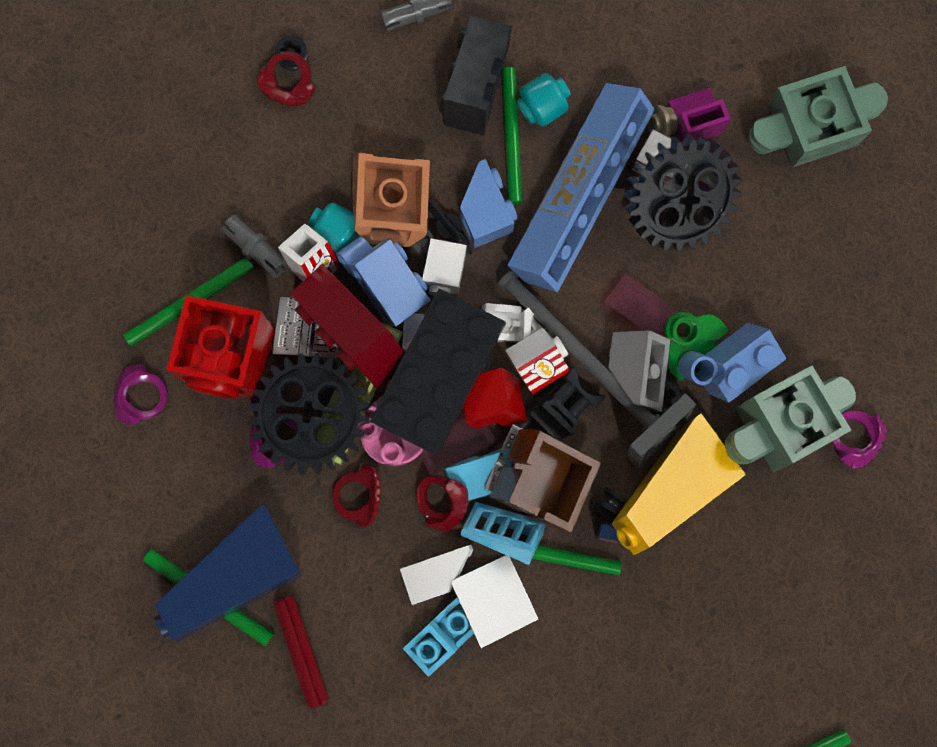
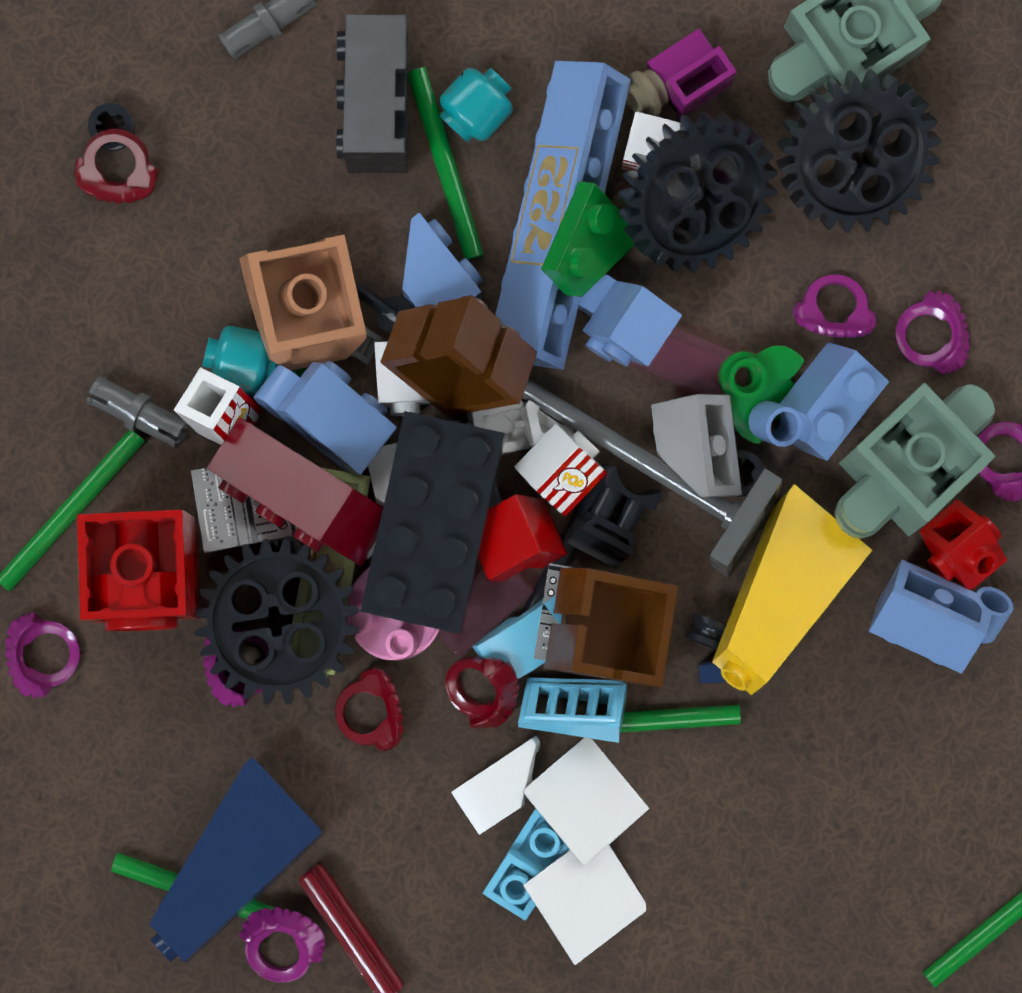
camera: 15 degrees left, 5 degrees up
(268, 645) = (307, 937): none -> magenta piece
(475, 674) = (586, 901): none -> white sticker
(487, 259) = (459, 356): none -> reddish brown piece
(597, 206) = (586, 242): none -> green wing
(610, 267) = (626, 321): none -> medium blue hinge
(739, 302) = (859, 323): none -> magenta piece
(781, 535) = (938, 616): none -> medium blue hinge
(811, 489) = (963, 545): none -> red brick
(826, 213) = (819, 139): none -> black gear
(833, 320) = (951, 355): none -> magenta piece

